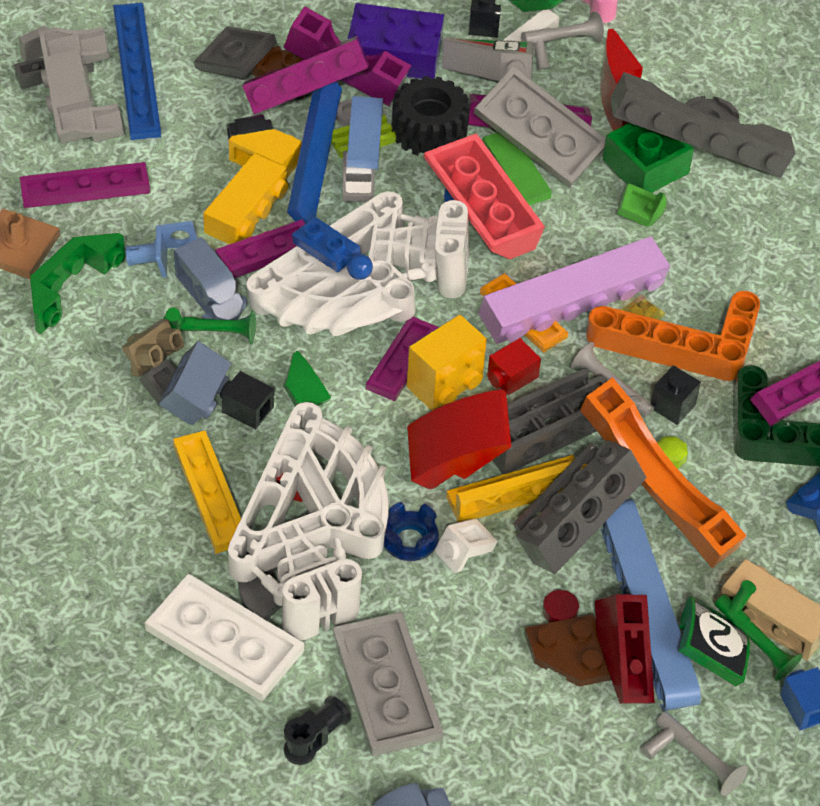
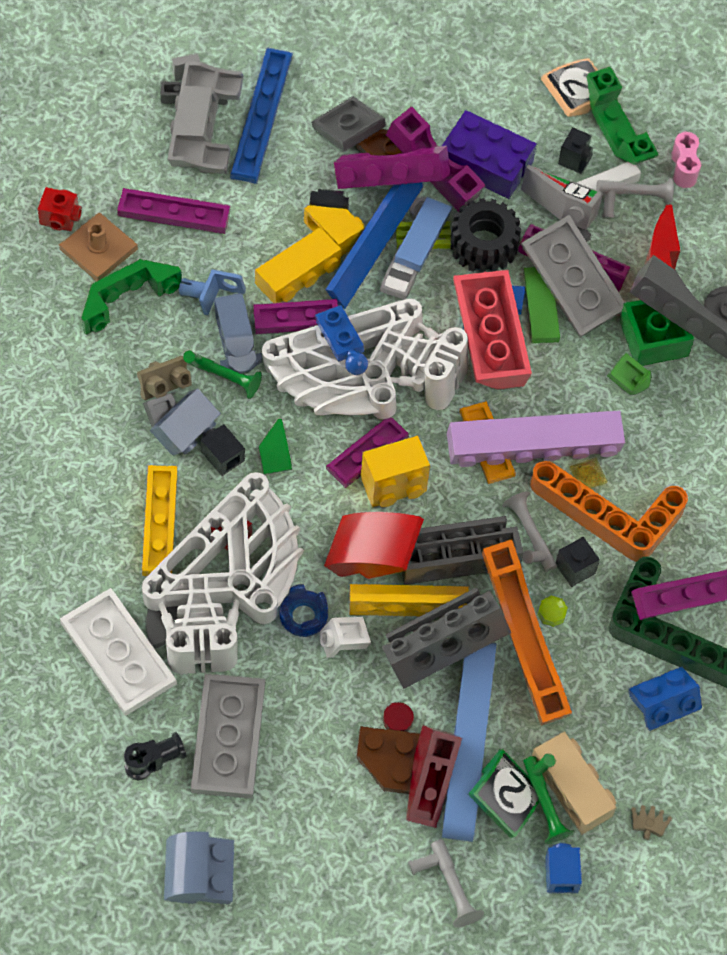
camera: 20 degrees right, 10 degrees up
(513, 367) = (453, 491): red brick -> none

